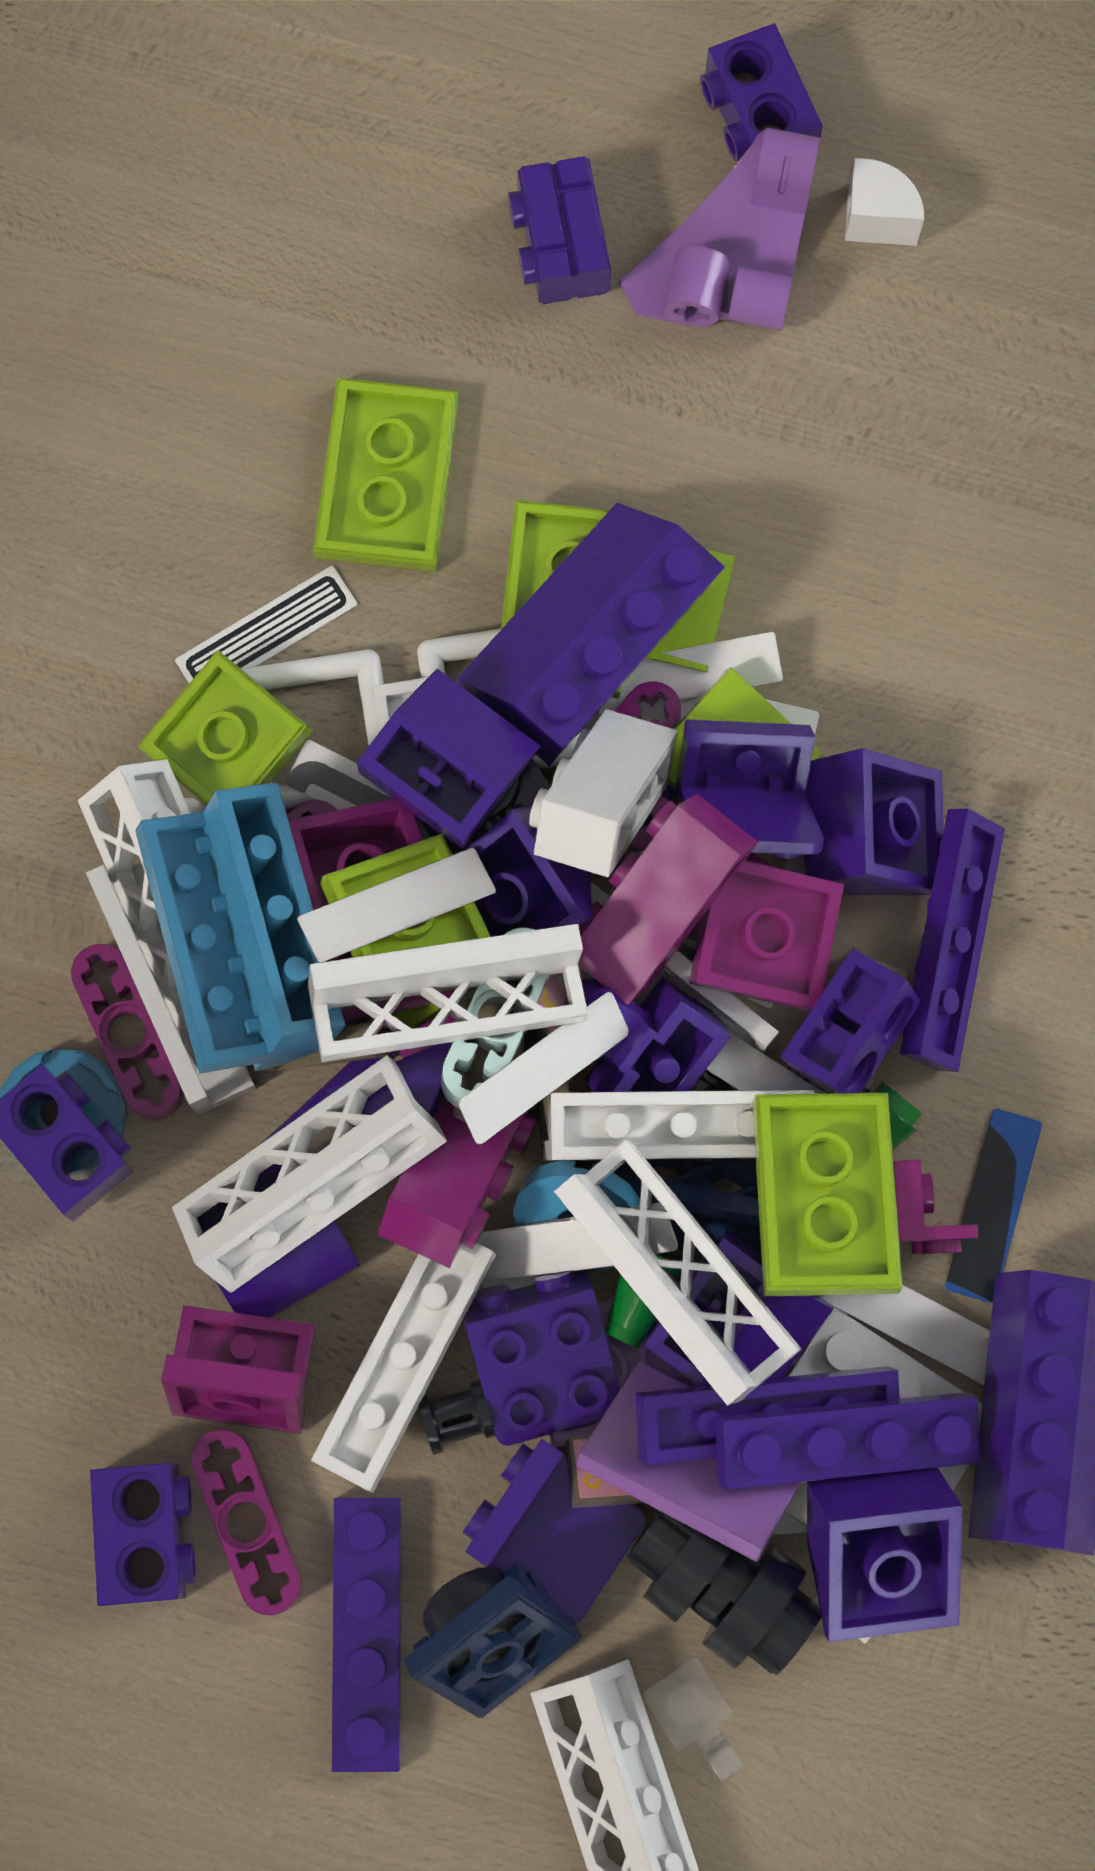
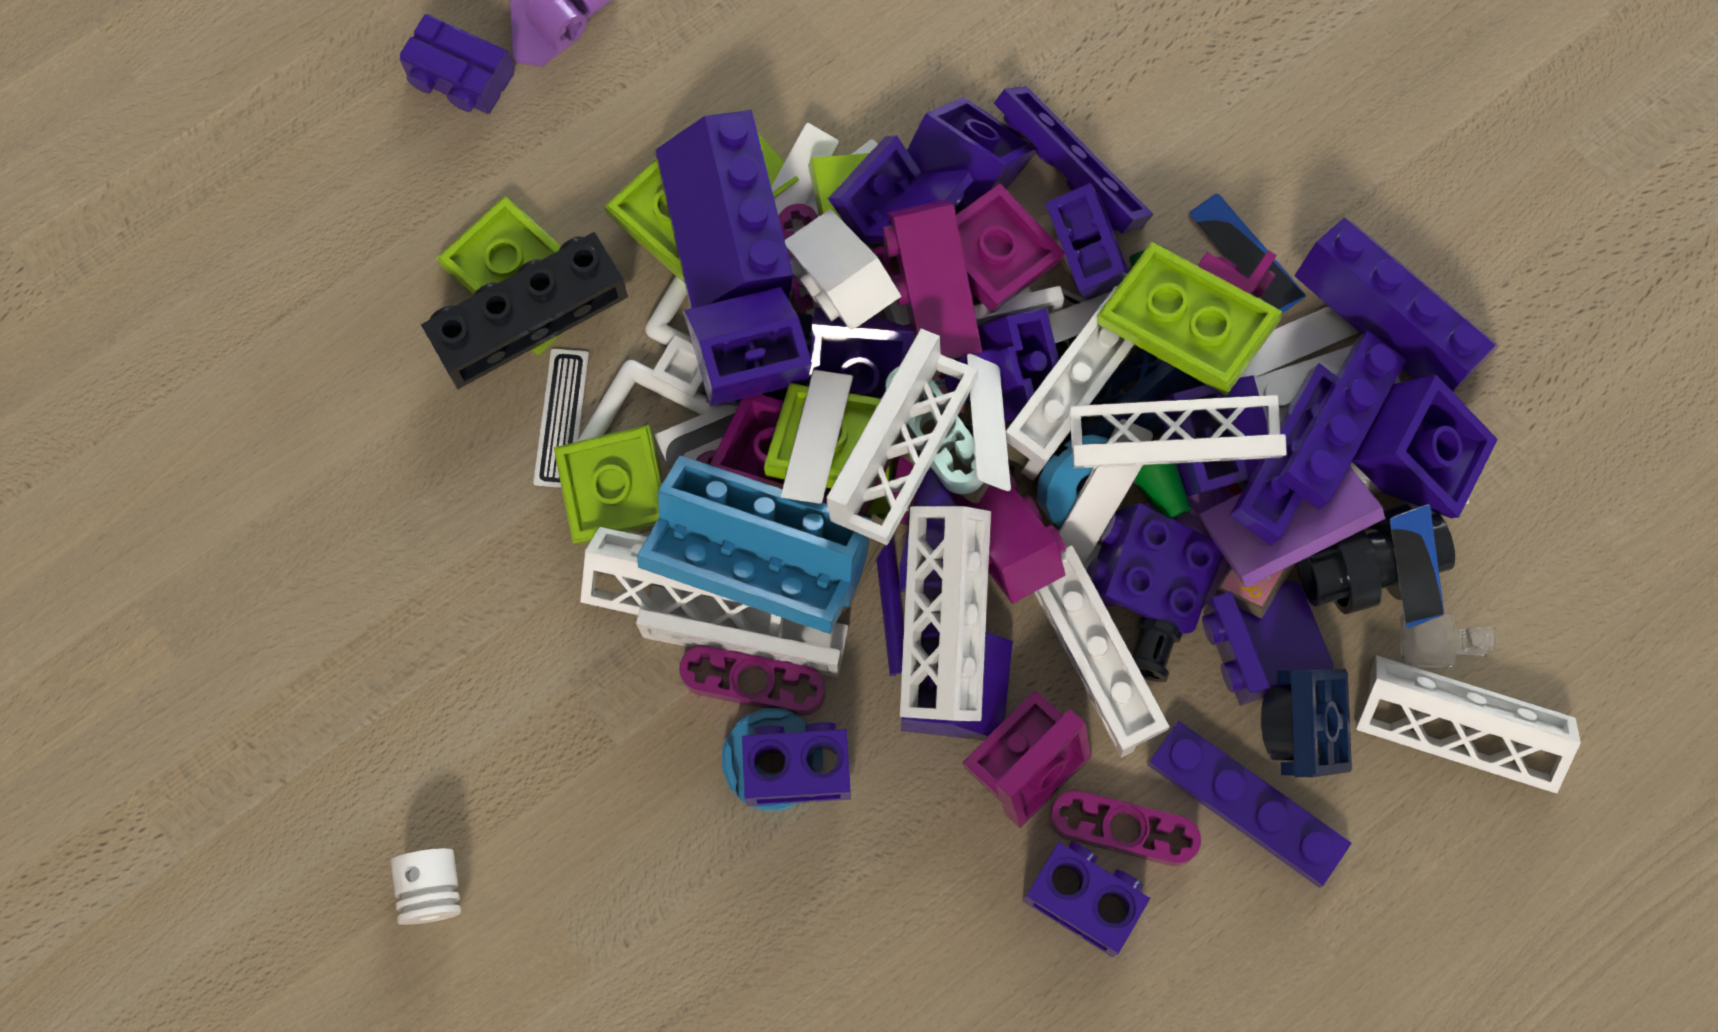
camera: 50 degrees left, 5 degrees down
(339, 507) = (525, 309): none -> black brick
(732, 1633) = (1417, 565): none -> black sticker

